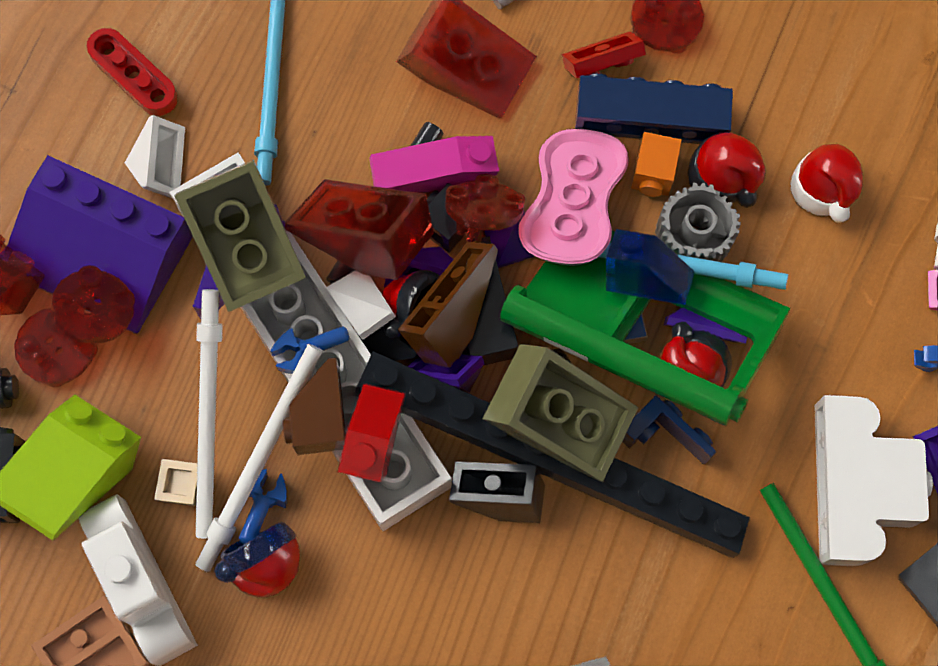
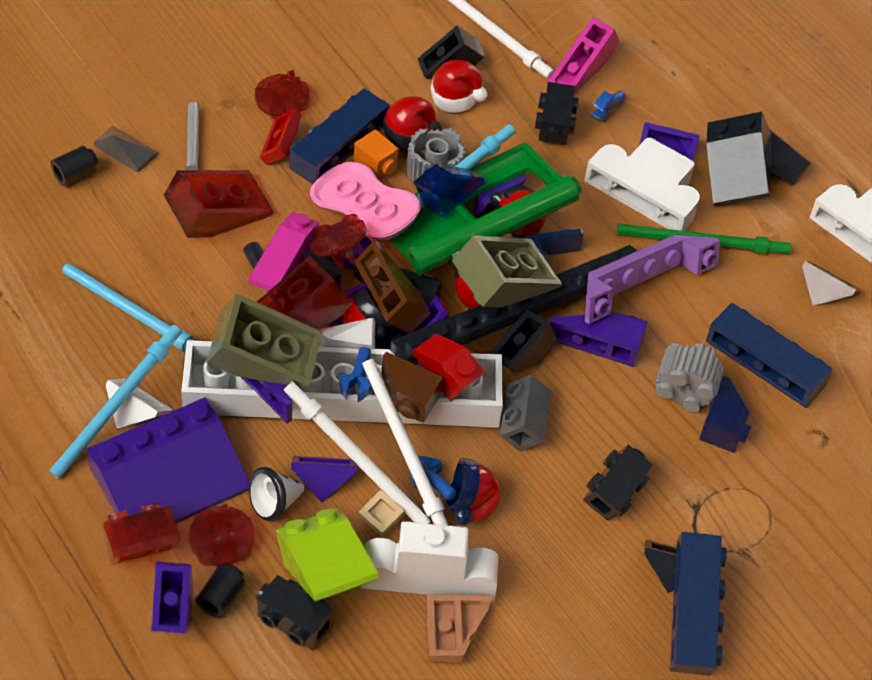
camera: 60 degrees left, 20 degrees down
(79, 292) = (222, 483): clear red plate -> none
(126, 60) = (70, 375): red plate -> none
(134, 364) = (272, 493): none -> white hat
(184, 388) = (323, 474): none -> dark purple slope
(199, 136) = (155, 353): none -> medium azure bar
(410, 550) = (525, 413): none -> dark grey brick
(592, 575) = (611, 337): none -> dark purple slope
(791, 600) = (691, 252): none -> medium lavender slope
(871, 316) = (557, 107): none -> black brick
(878, 143) = (453, 46): none -> black slope

